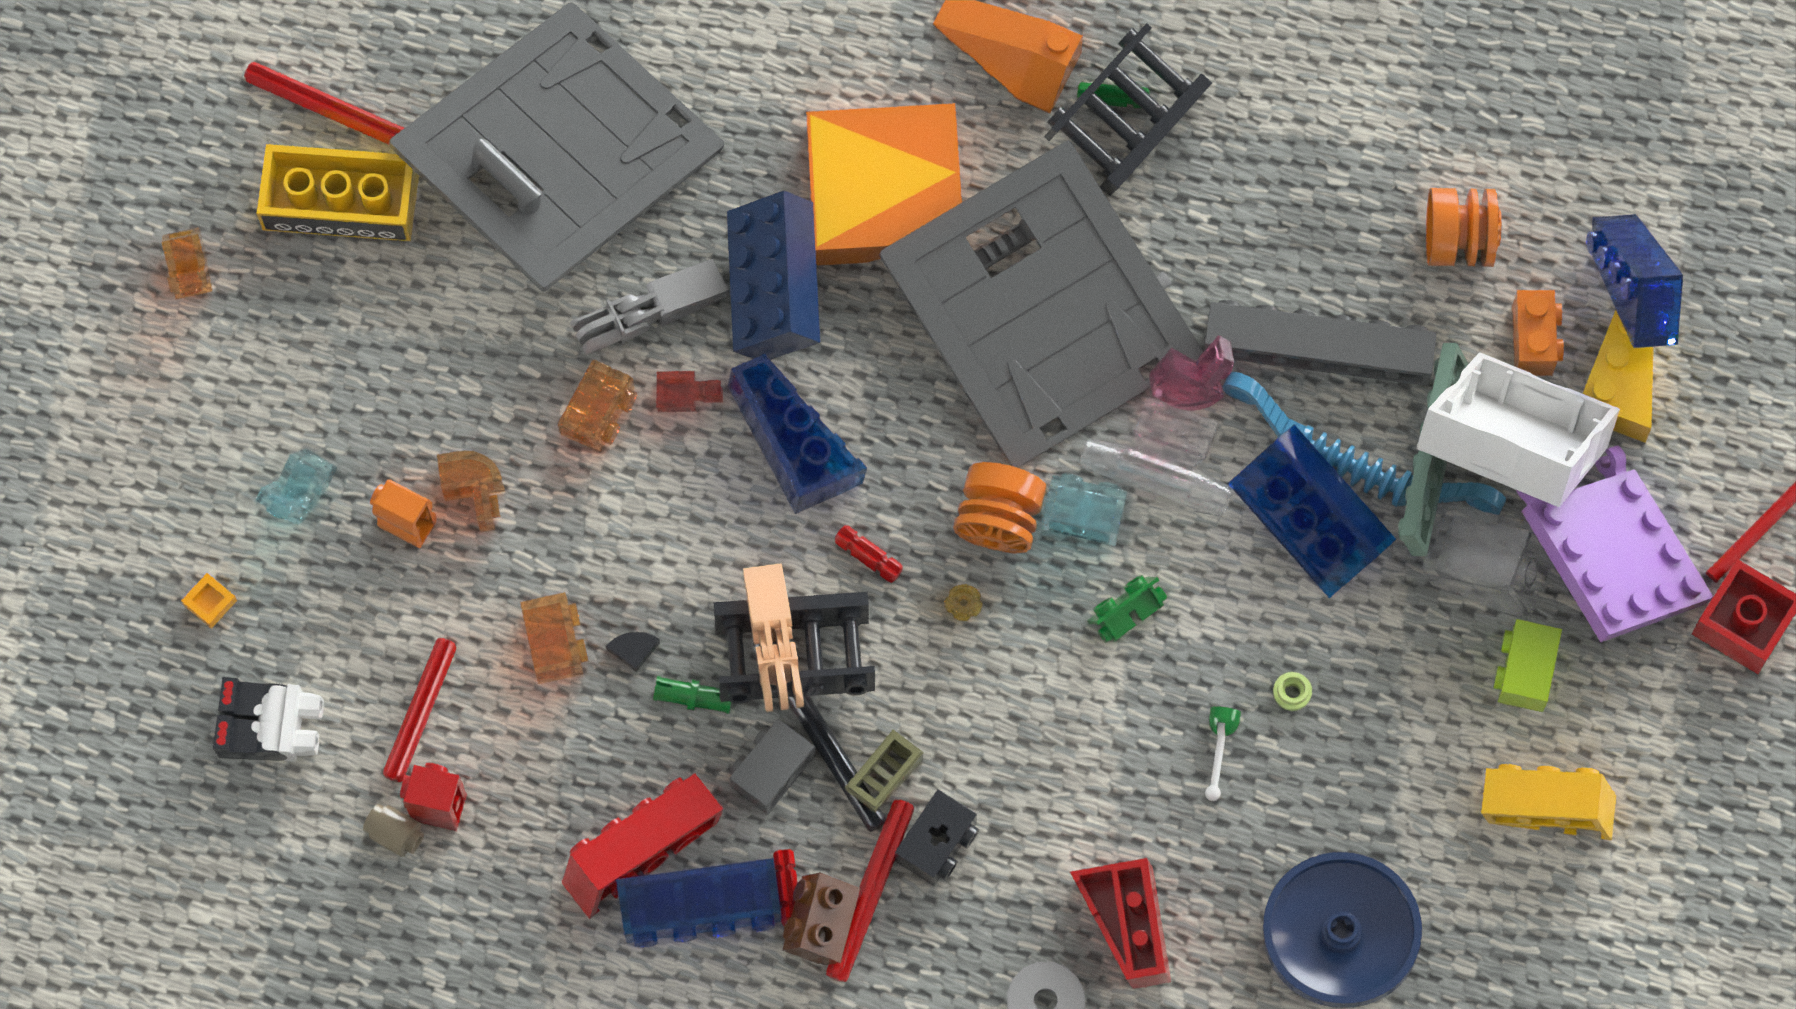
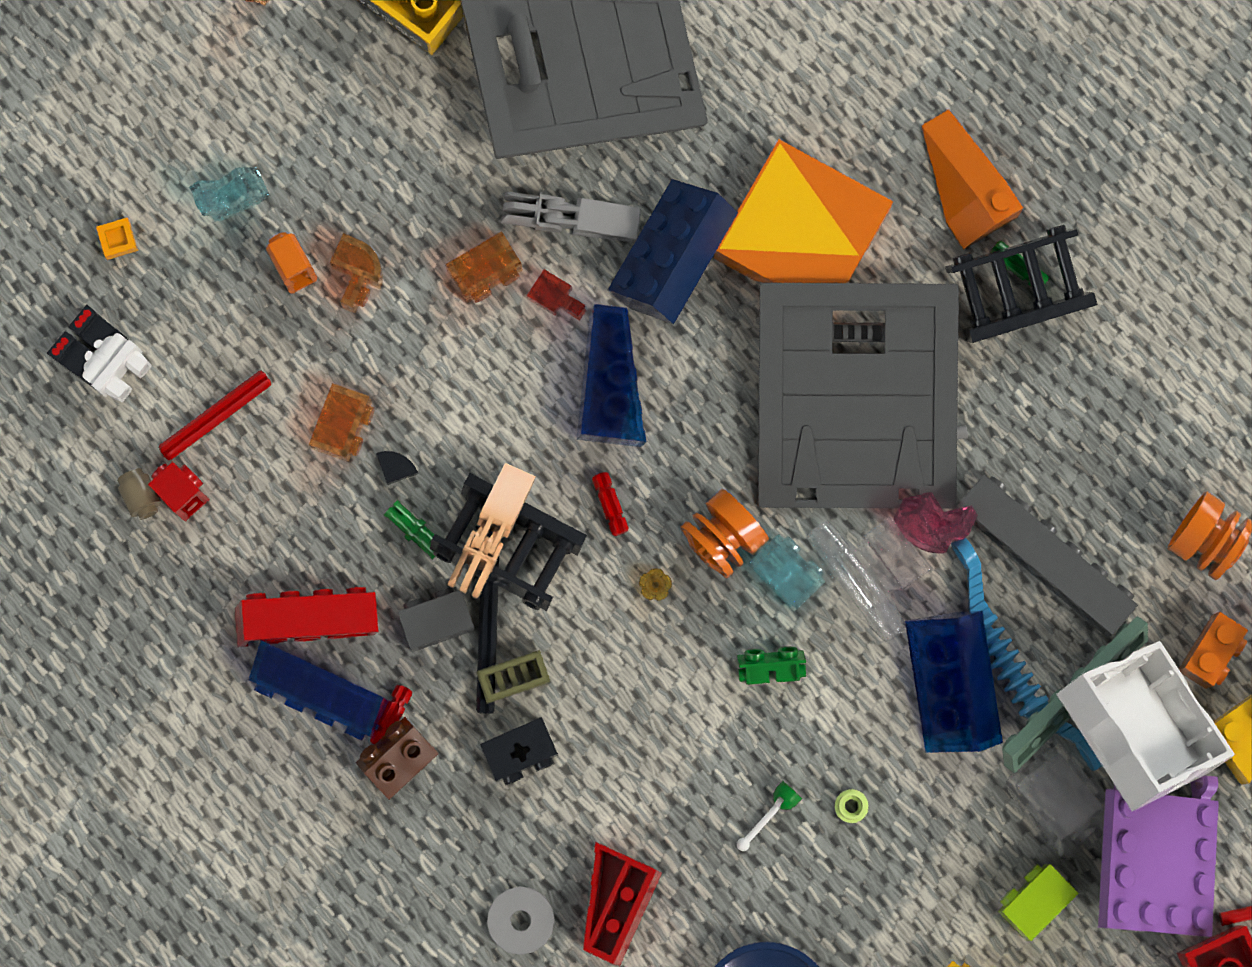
camera: 30 degrees right, 10 degrees up
(873, 885) = (453, 754): red axle -> none

